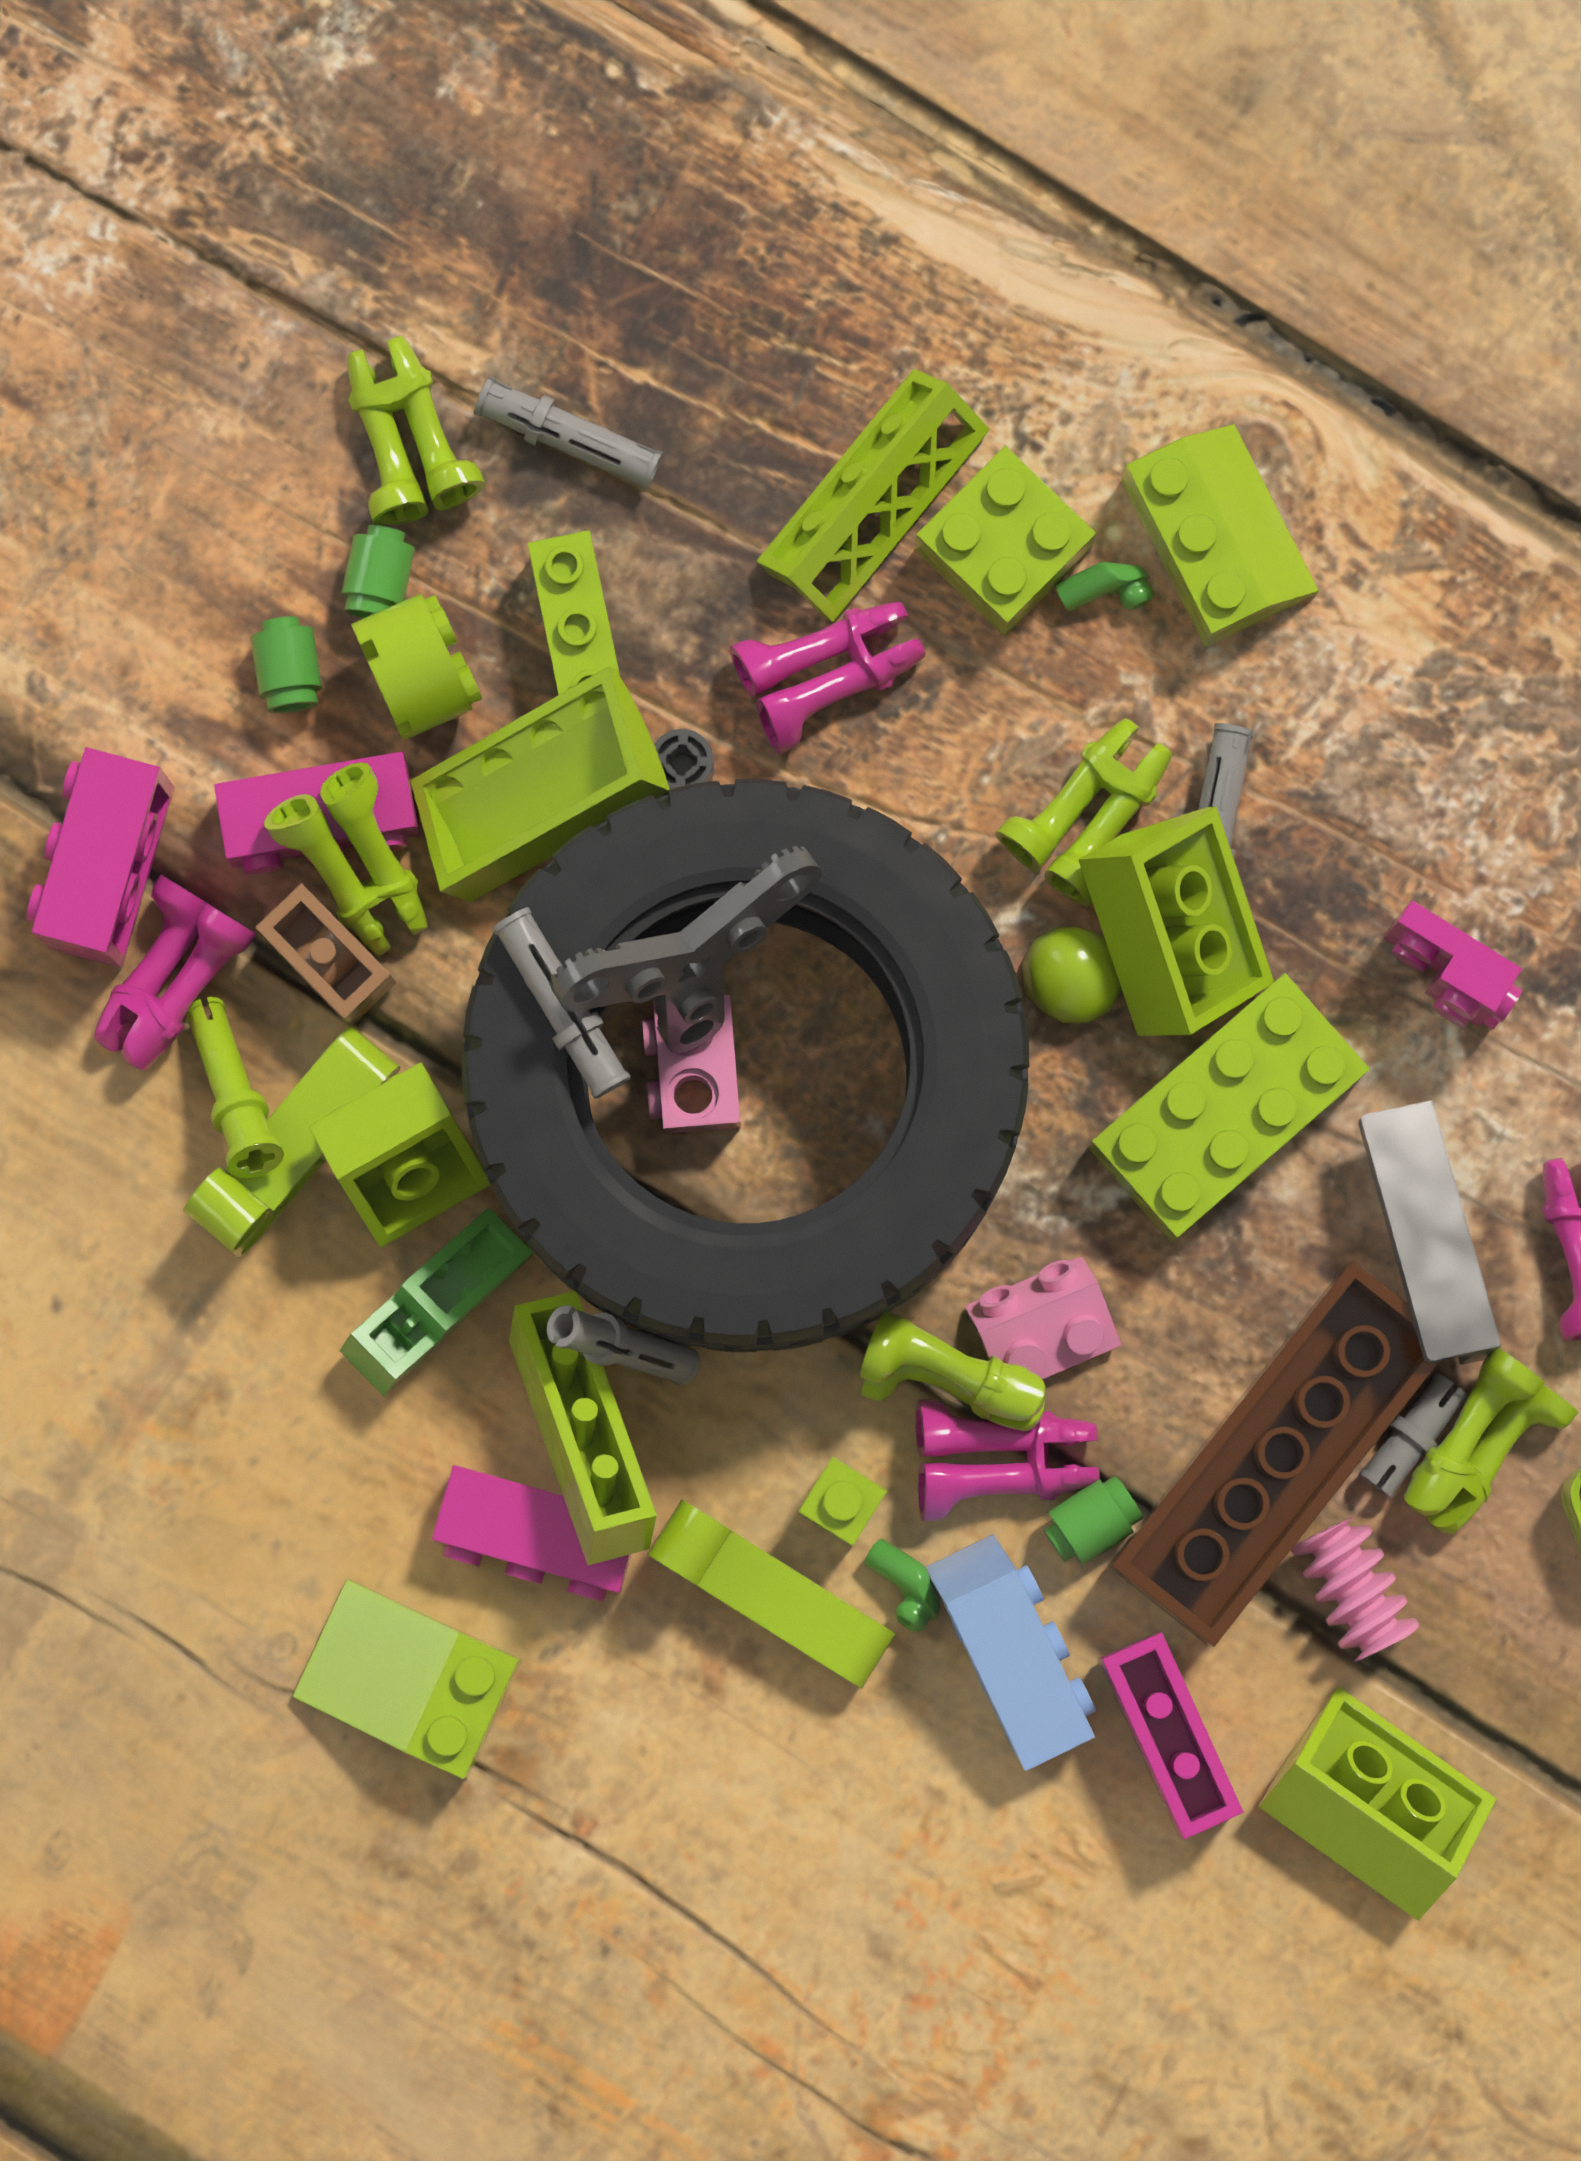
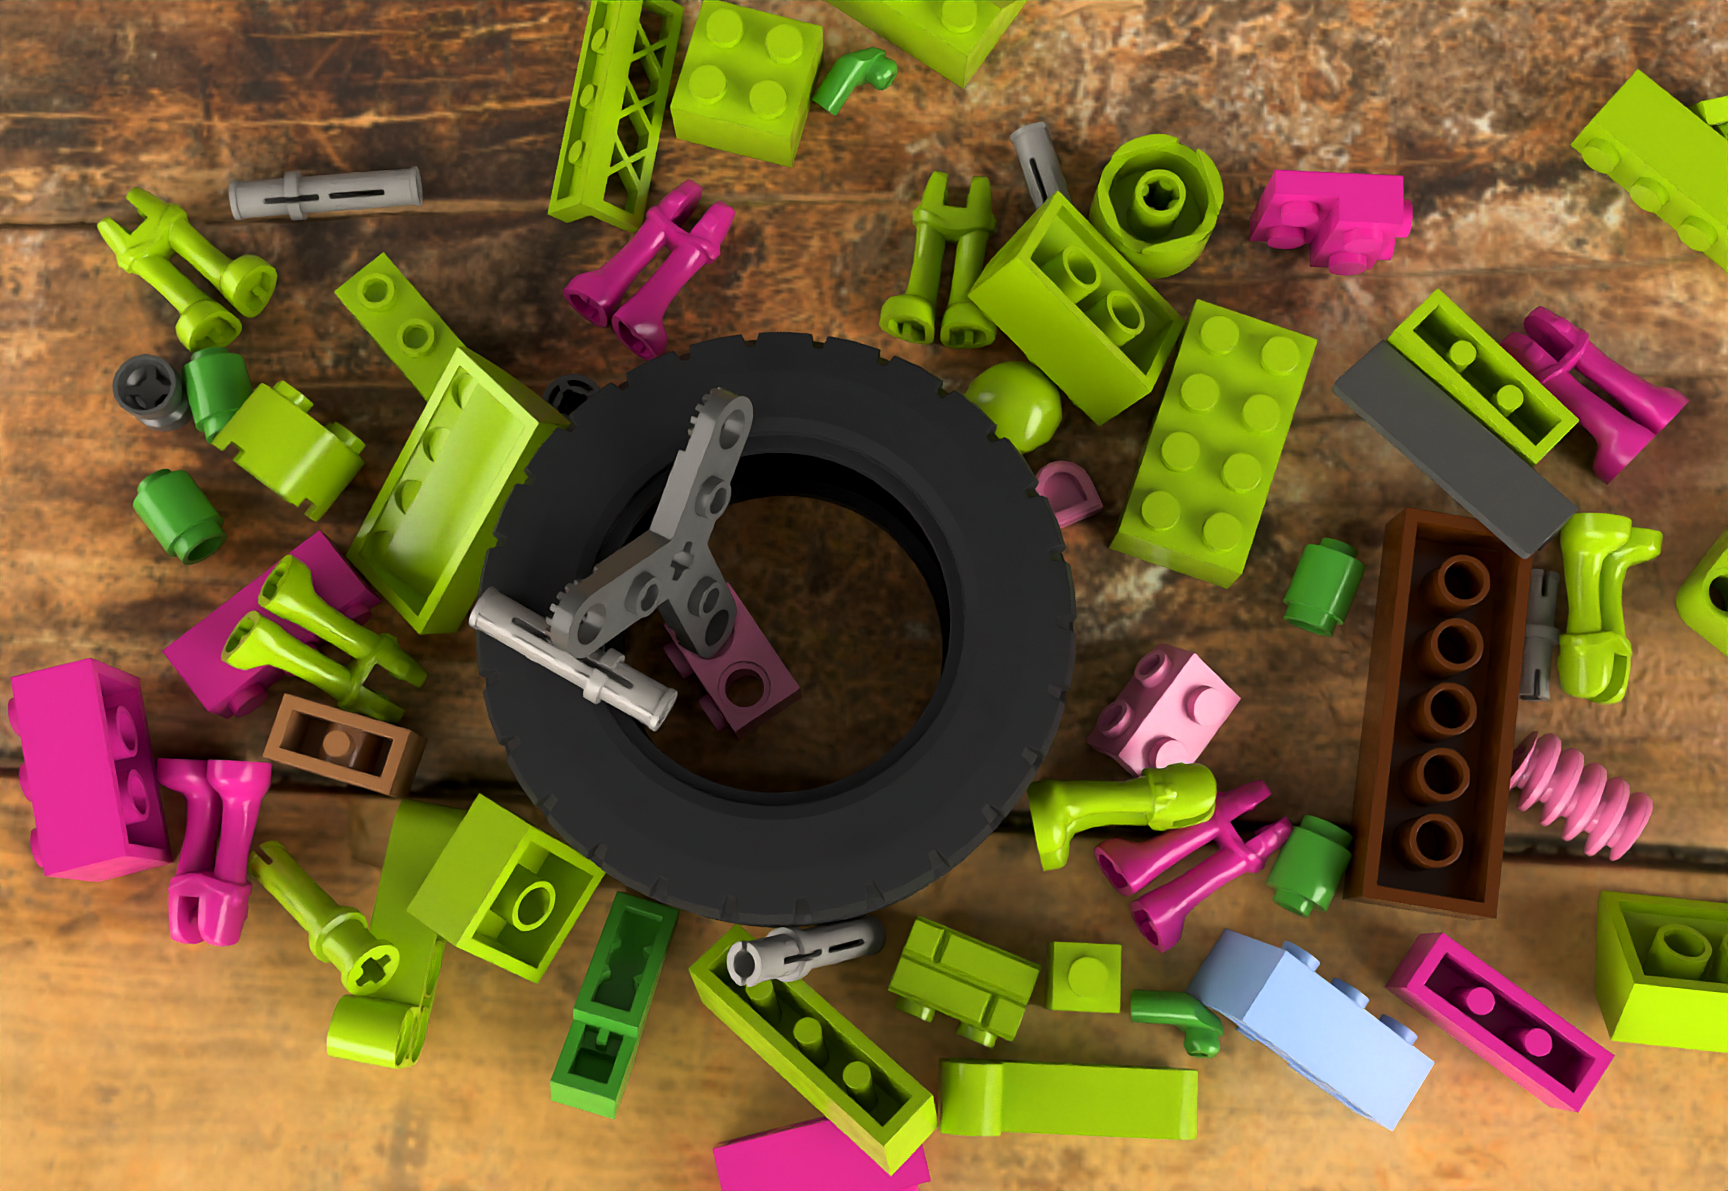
camera: 30 degrees left, 5 degrees down
(316, 530) = (144, 383): none -> dark grey wheel
(739, 1447) = (963, 980): none -> lime brick
(1072, 1078) = (1068, 492): none -> bright pink tile
(1252, 1289) = (1323, 586): none -> bright green brick
(1334, 847) = (1183, 200): none -> lime brick
(1493, 1186) = (1482, 377): none -> lime brick

